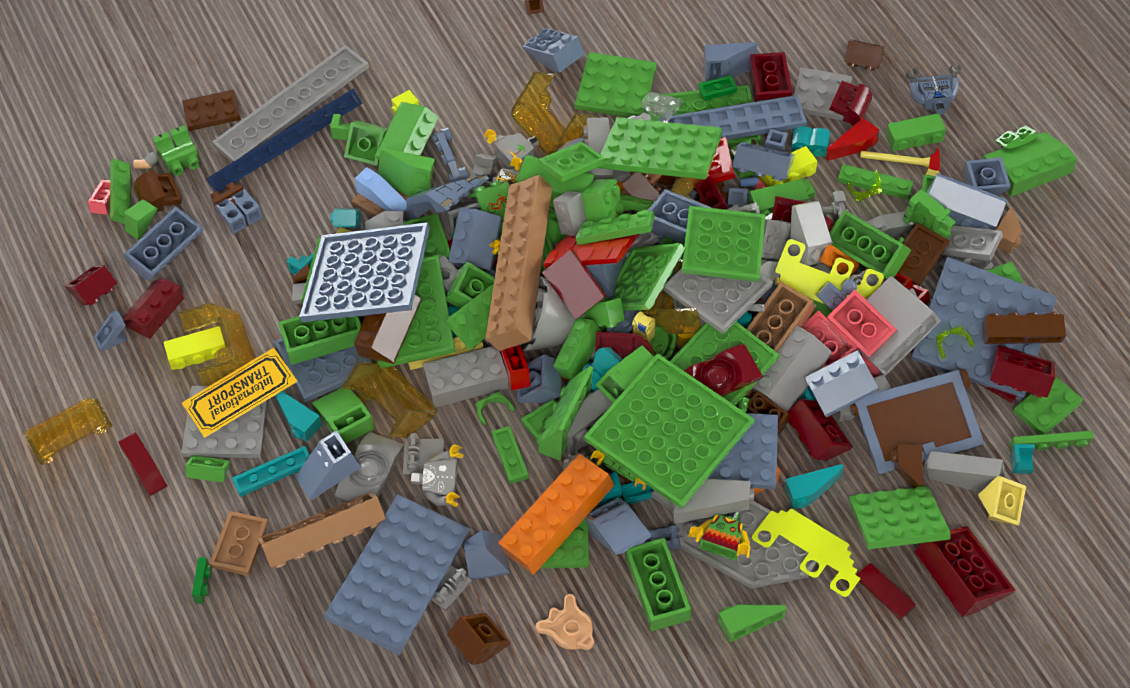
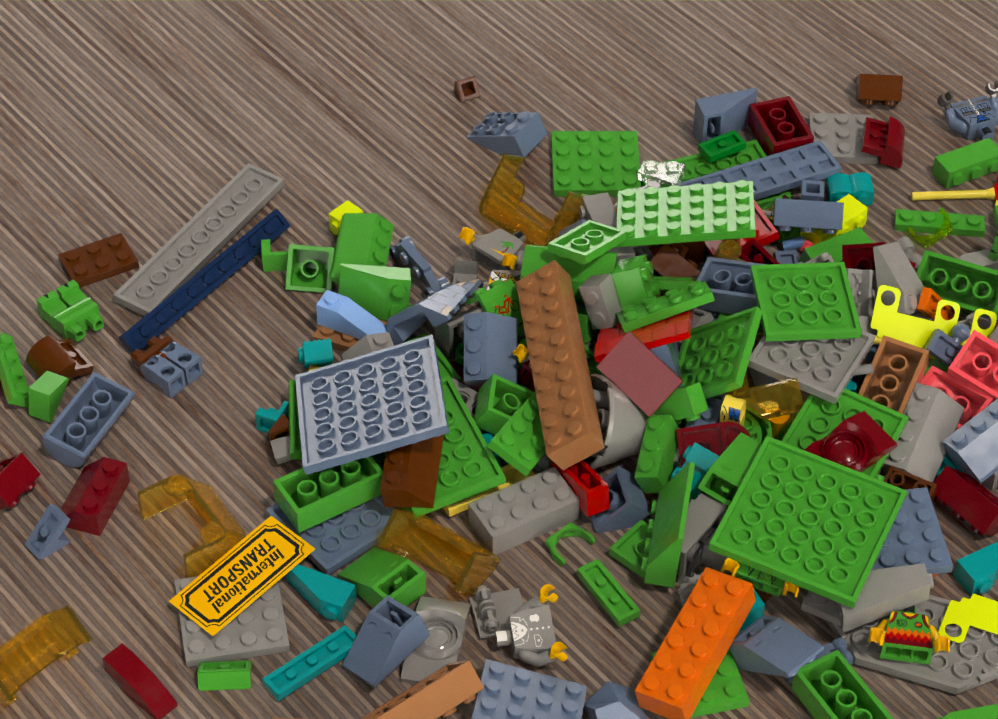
camera: 15 degrees left, 10 degrees down
(148, 162) = (35, 331): arm -> none
(194, 348) = (165, 534): neon yellow brick -> none
(635, 494) = (784, 606): teal tile -> none
(855, 140) = (901, 181): red slope -> none

